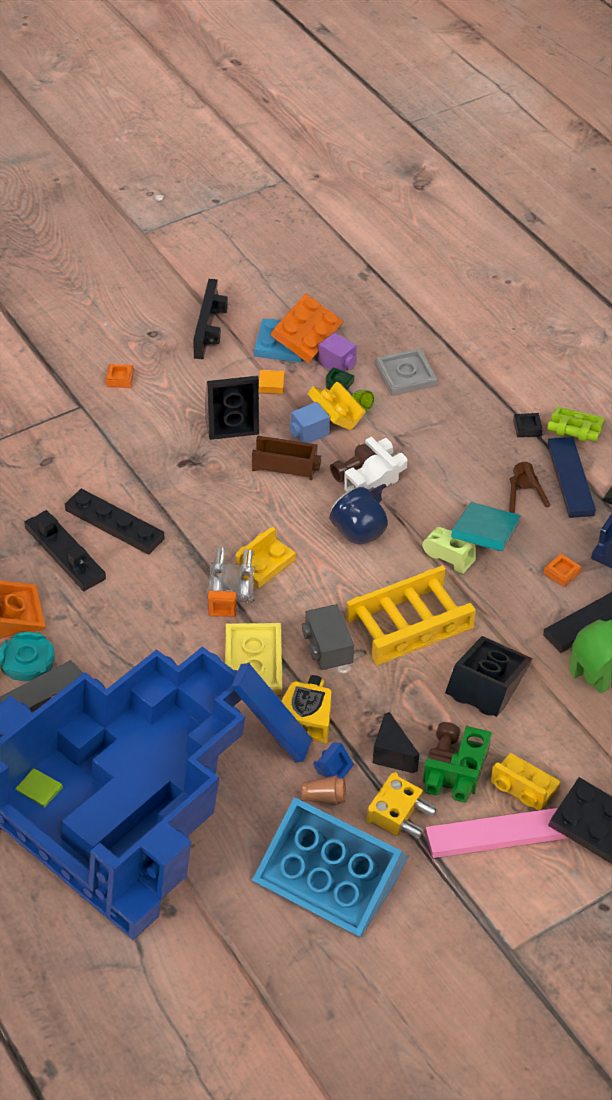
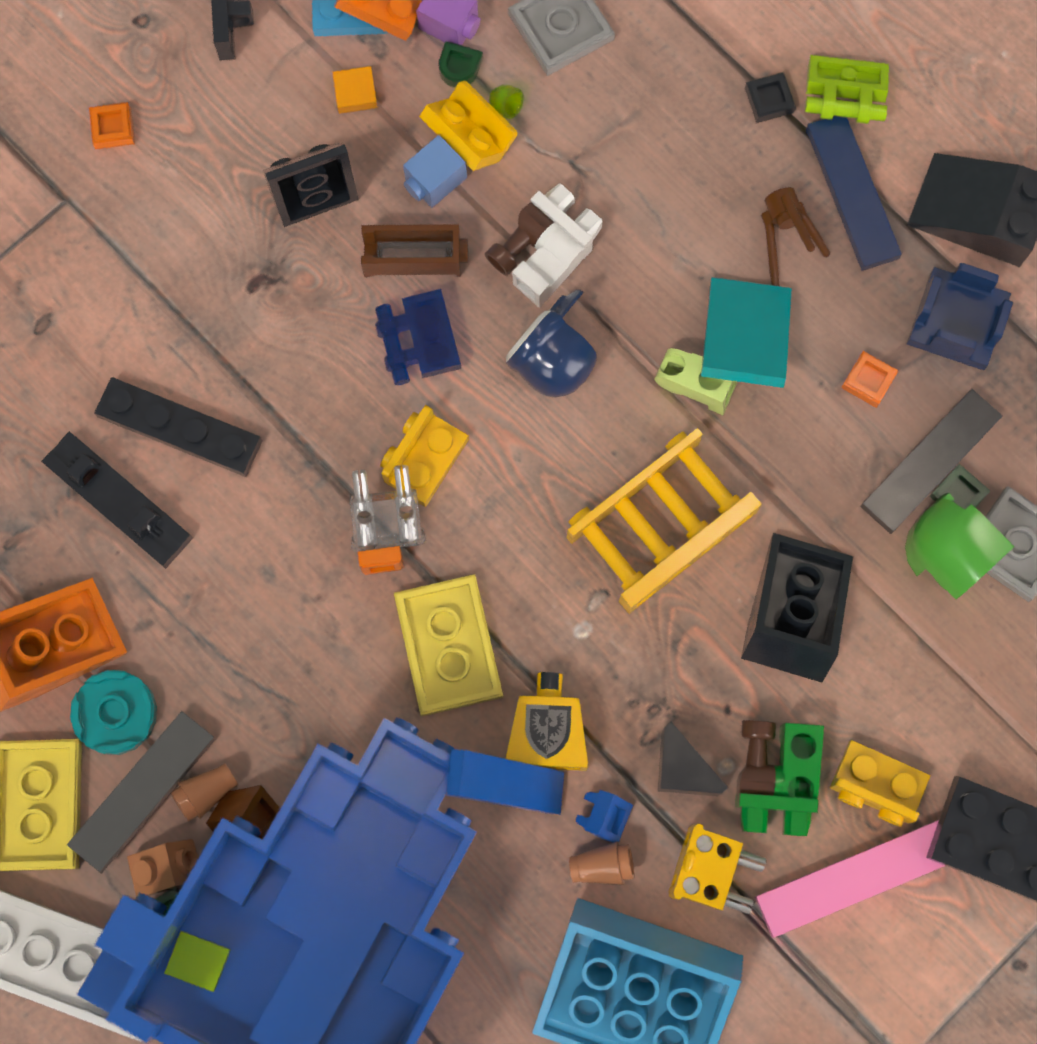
camera: 10 degrees left, 30 degrees up
(285, 500) = (430, 333): none -> clear blue plate
(328, 637) = (551, 589): dark grey brick -> none

